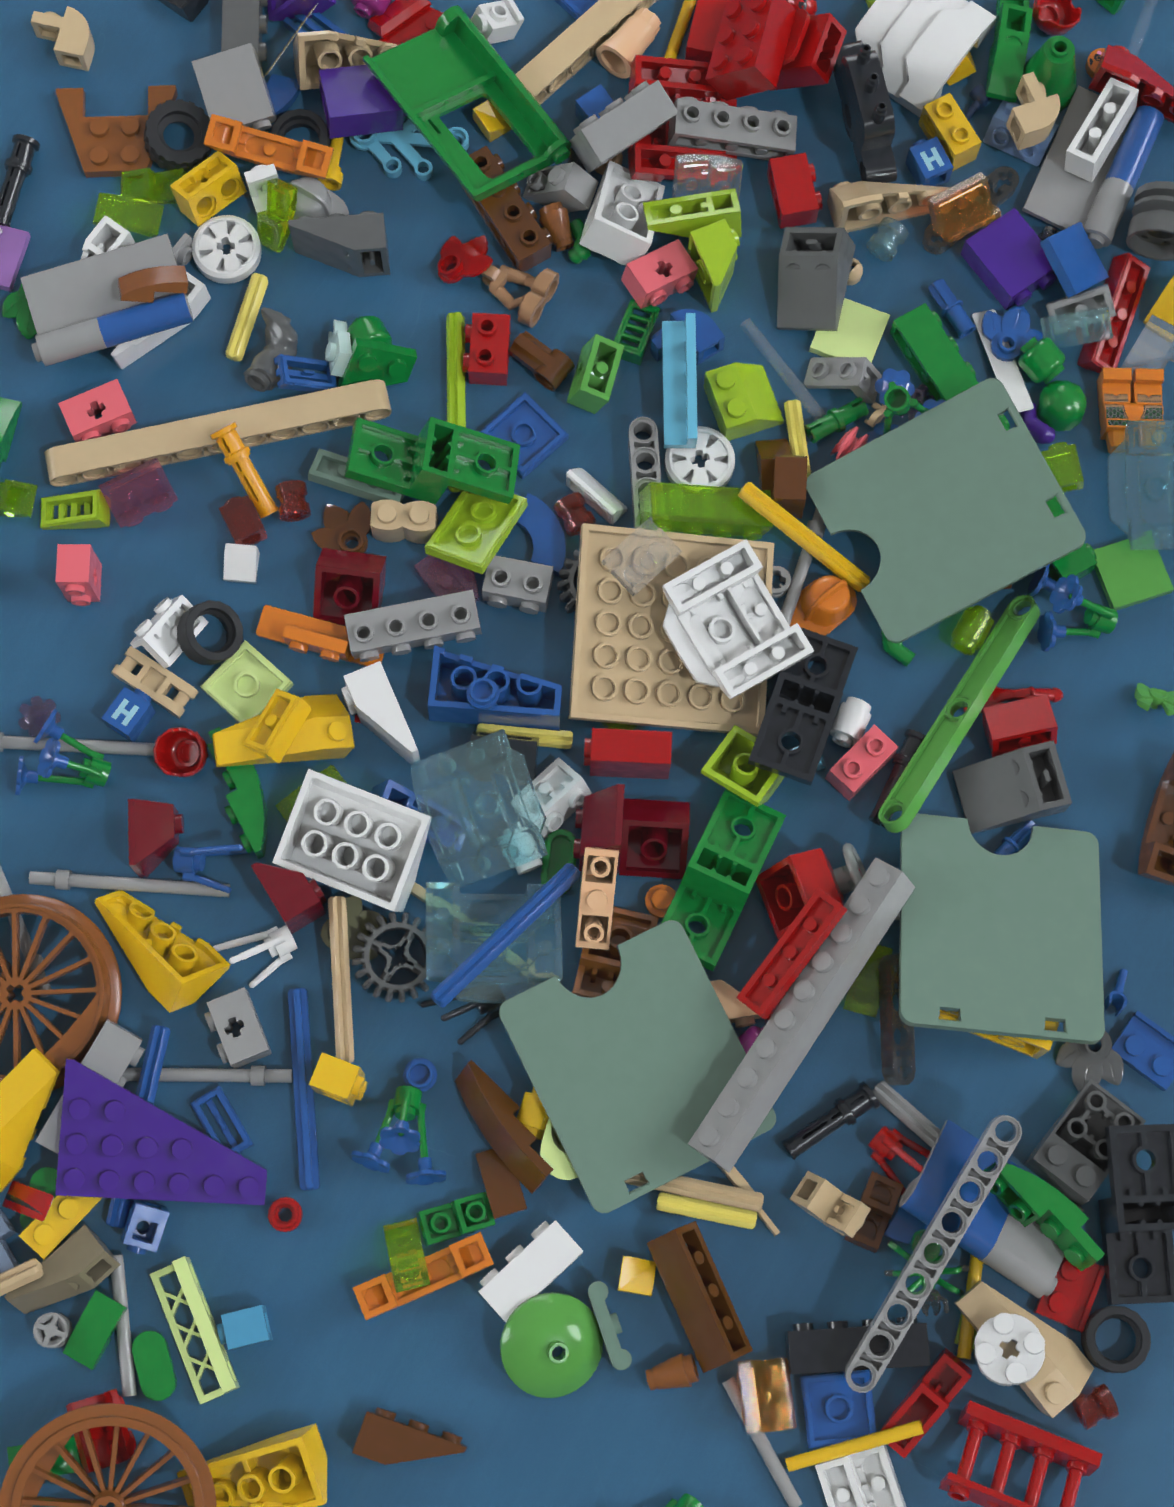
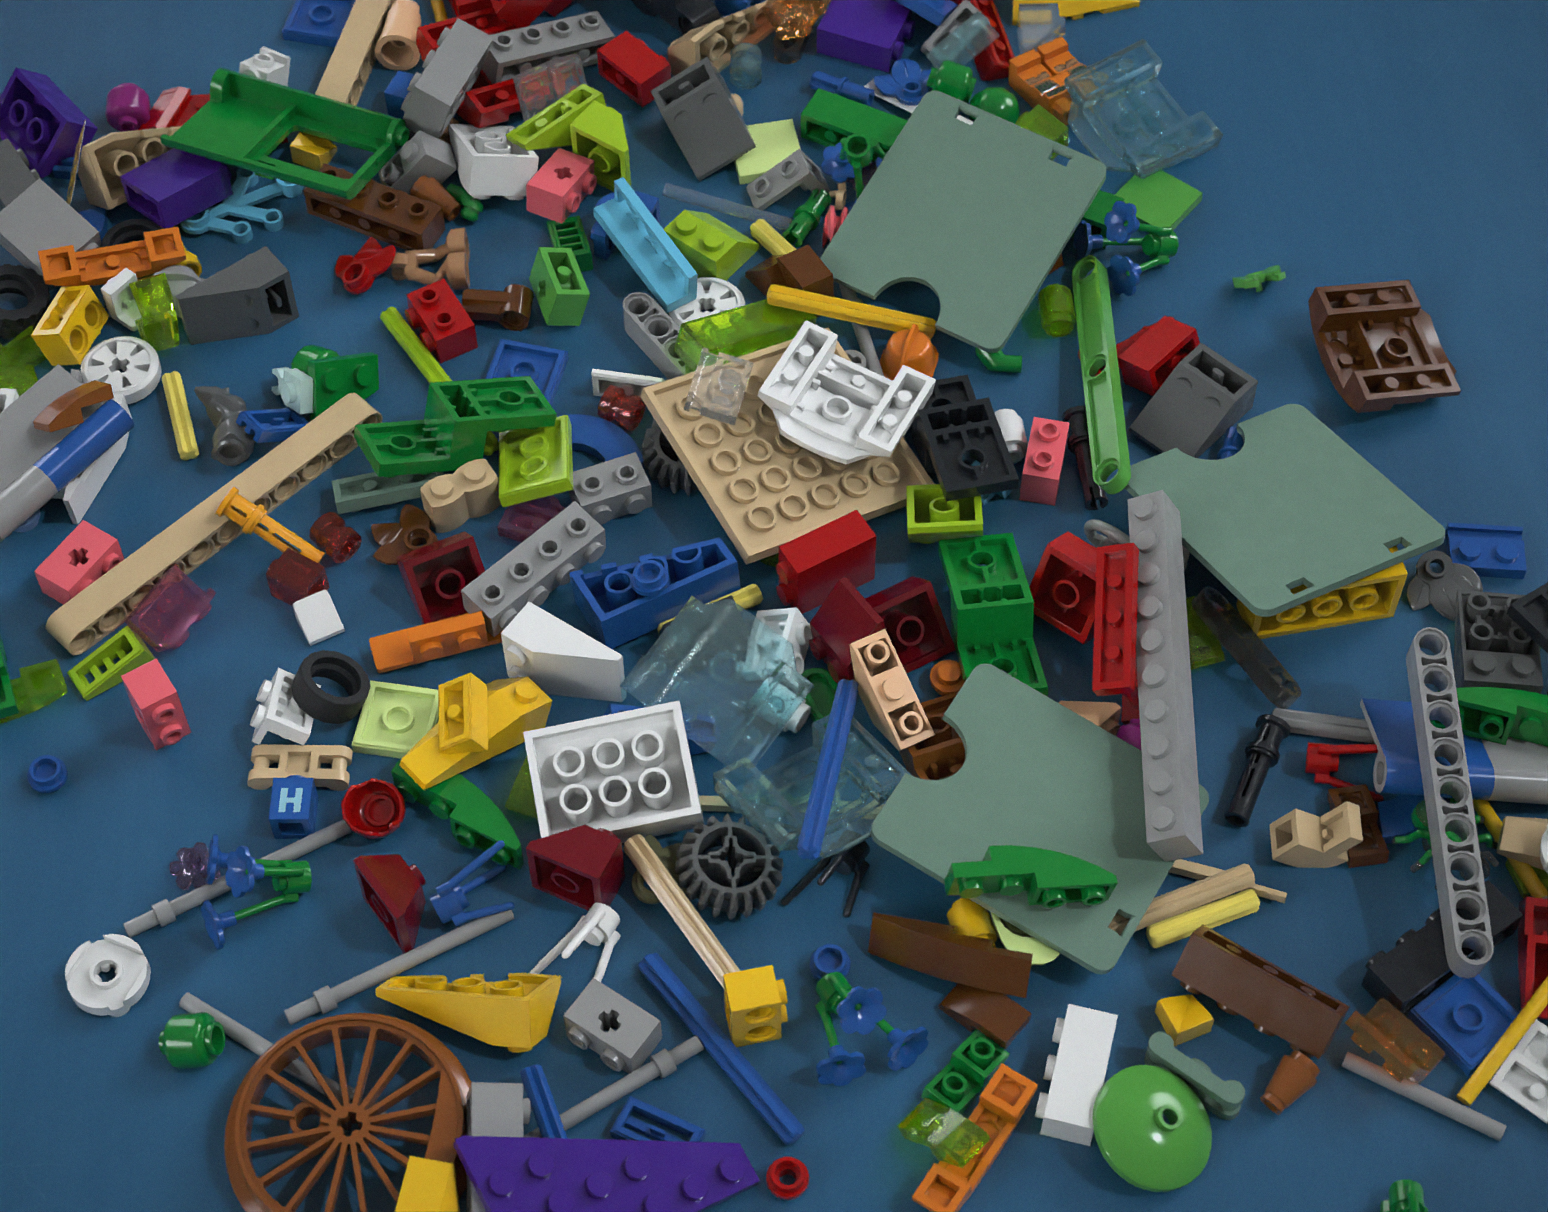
camera: 30 degrees left, 20 degrees down
(599, 1121) = (1044, 874): none -> green slope

